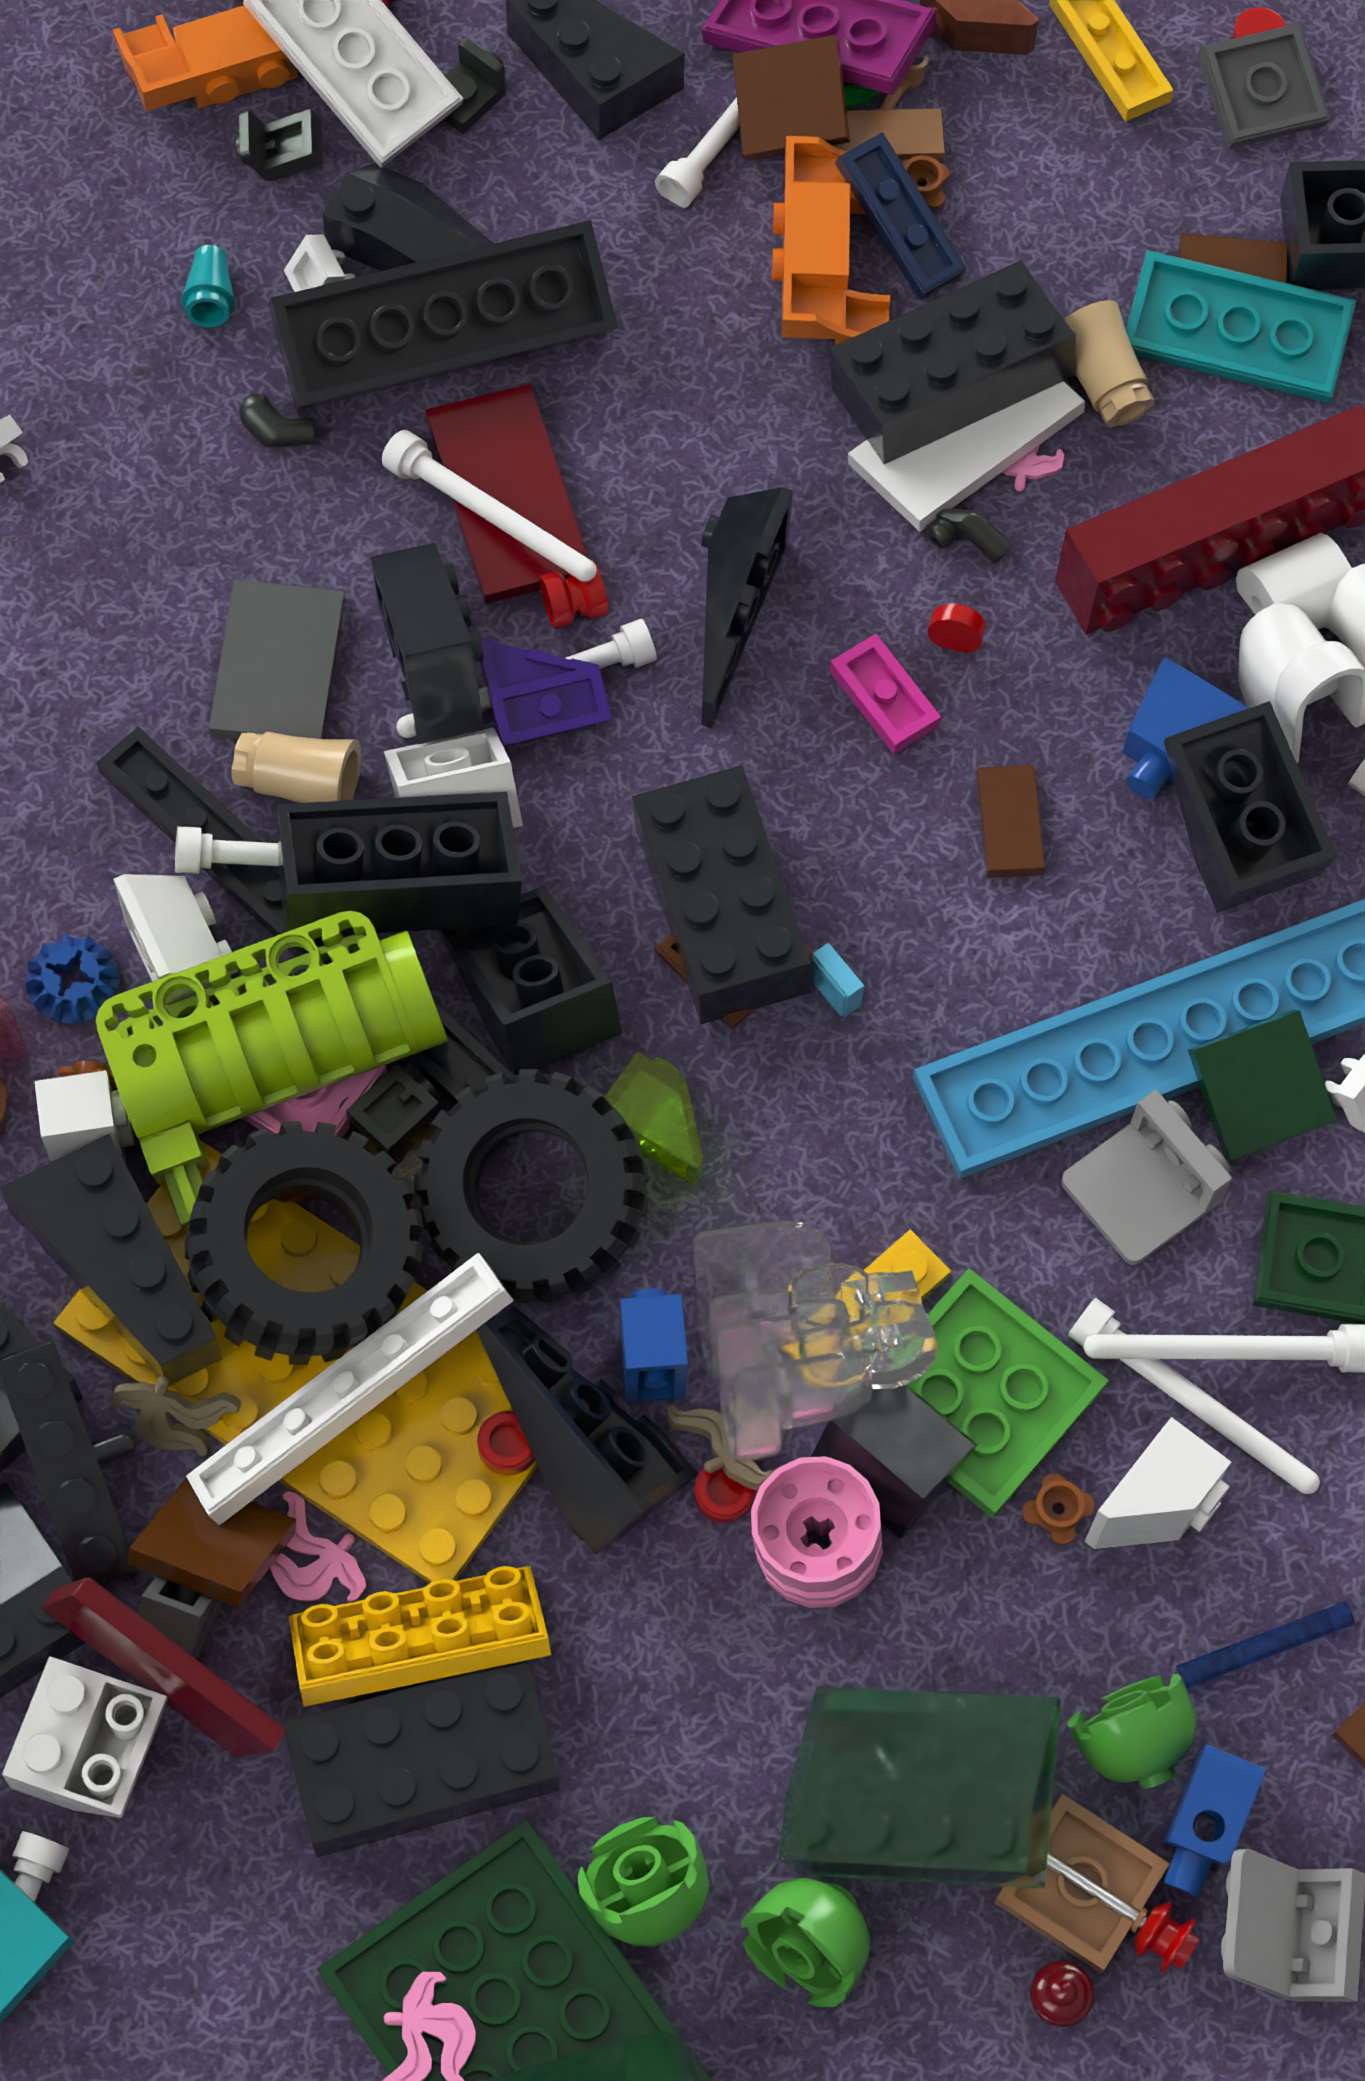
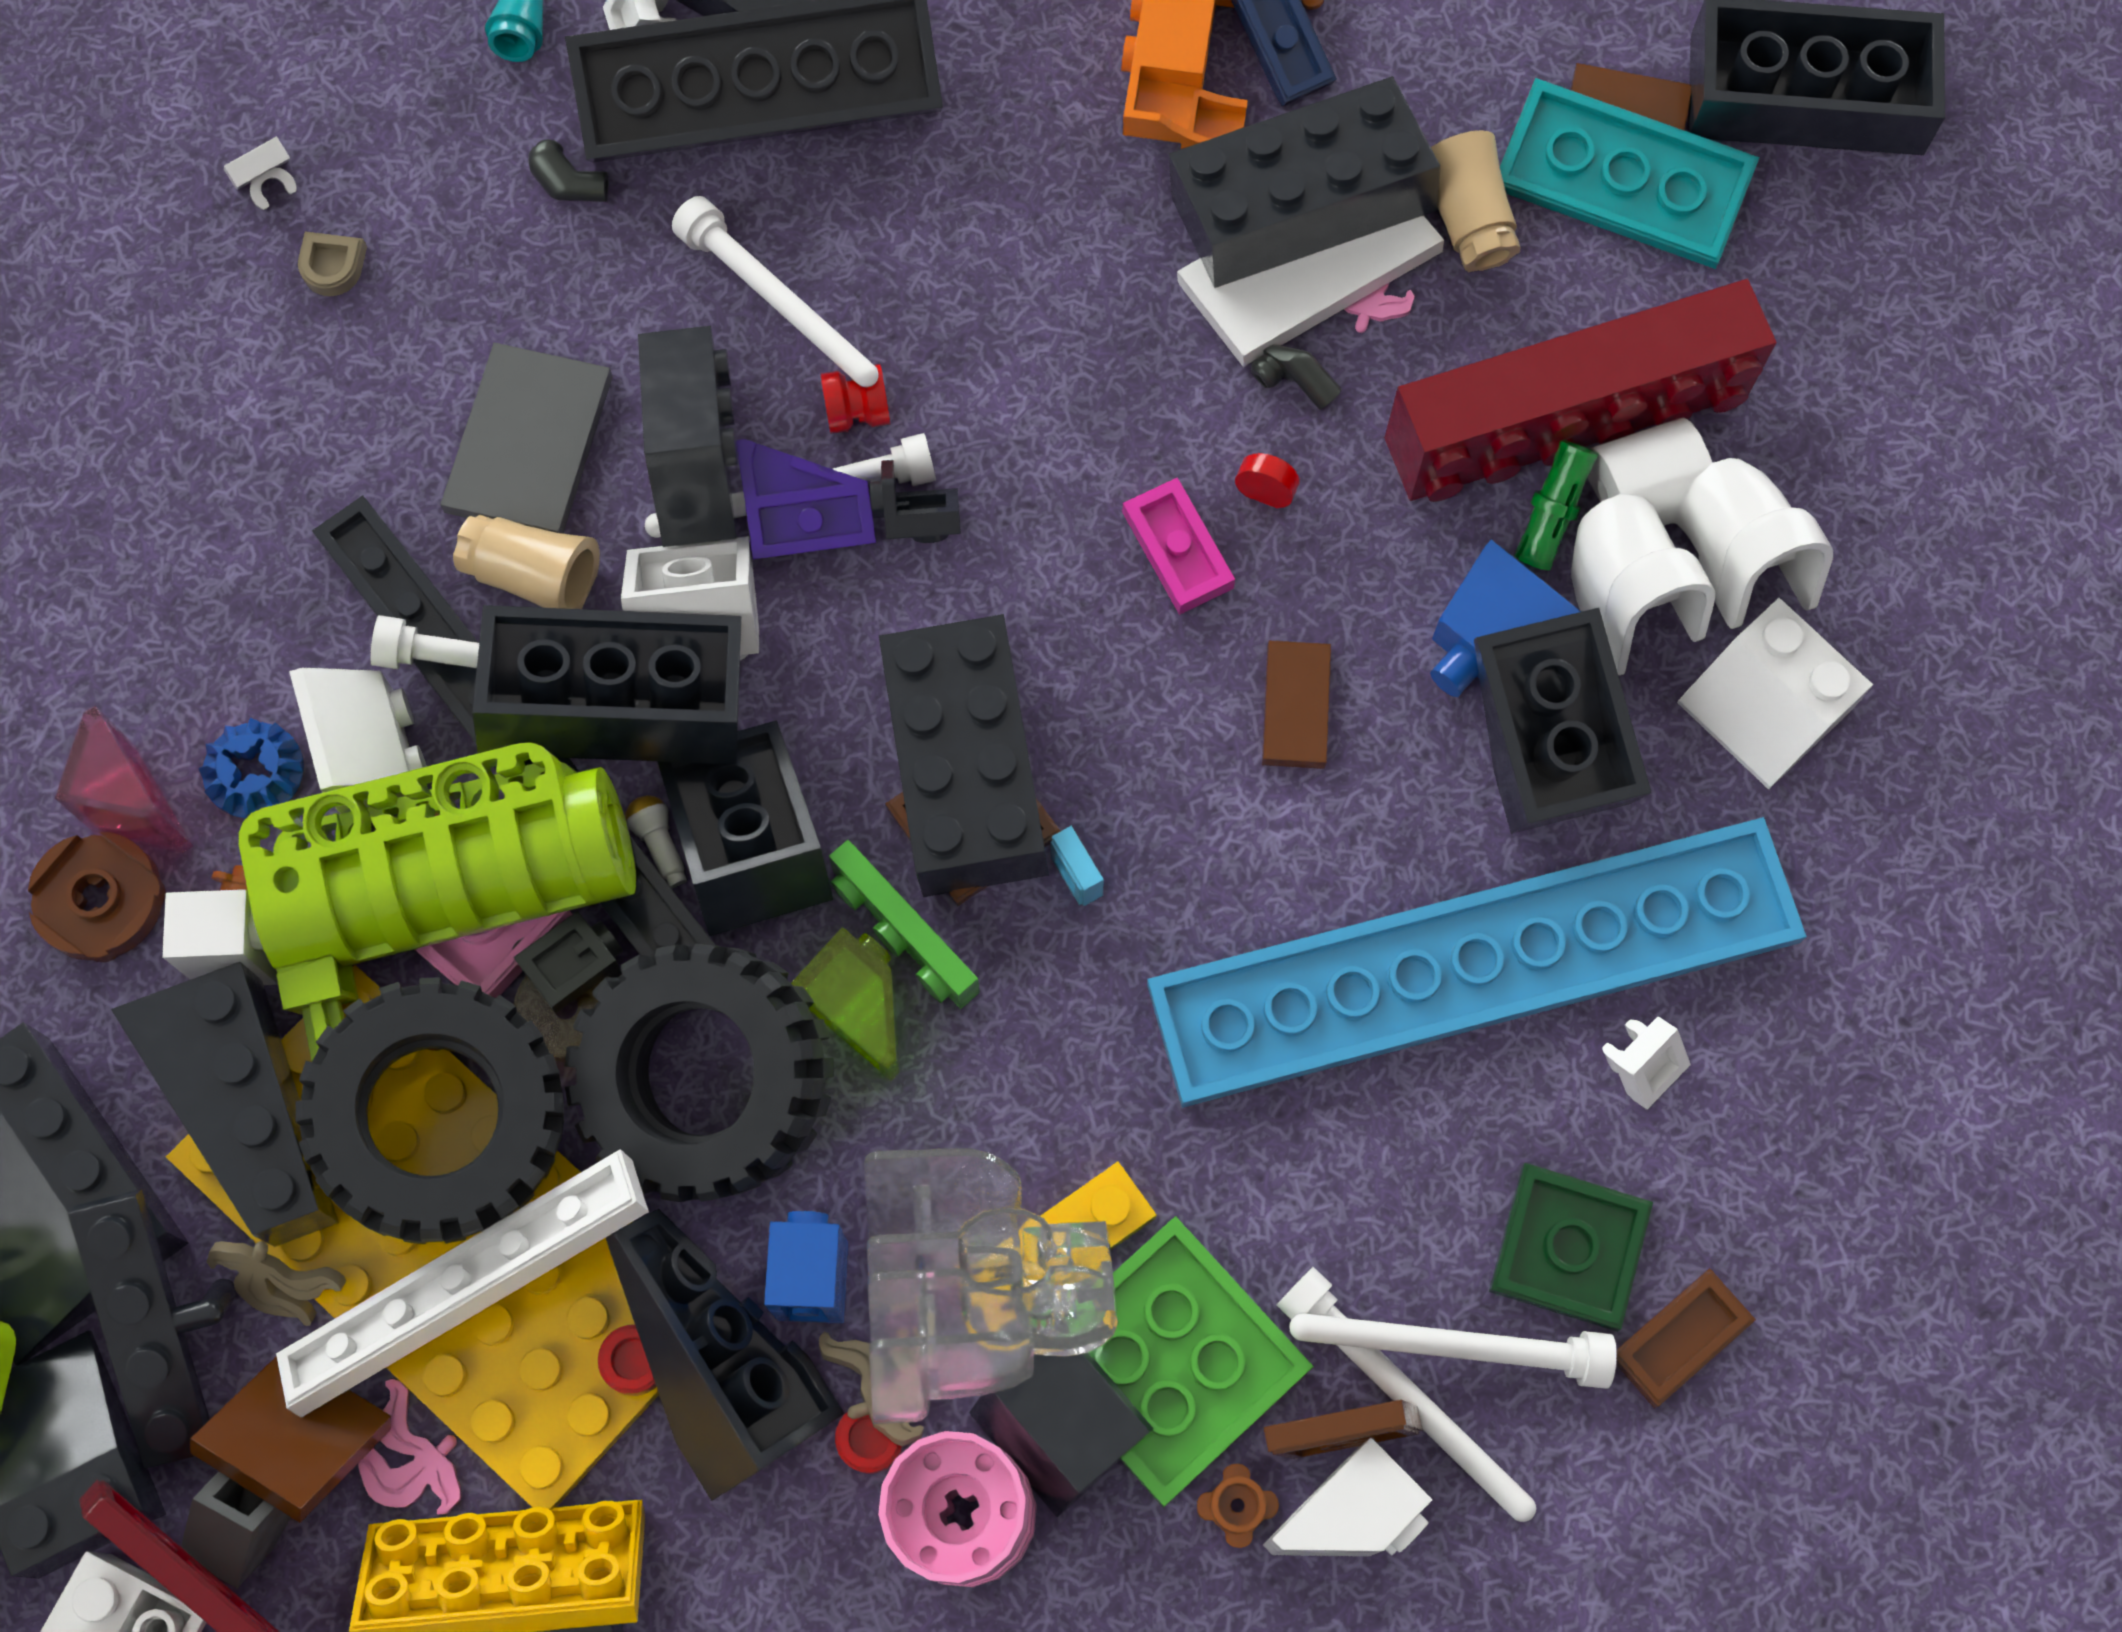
camera: 10 degrees right, 5 degrees up
(69, 524) = (331, 262): none -> dark tan tile
(446, 990) = (649, 821): none -> white piece
(506, 453) = (807, 236): dark red tile -> none
(646, 691) = (918, 515): none -> black bracket
(688, 1049) = (902, 927): none -> bright green plate
(741, 565) = (1040, 387): black wedge -> none
(1135, 1424) = (1343, 1429): none -> reddish brown tile
(1148, 1180) = (1389, 1137): light grey bracket -> none
(1217, 621) = (1555, 505): none -> green pin
(1262, 1085) = (1533, 1042): dark green tile -> none

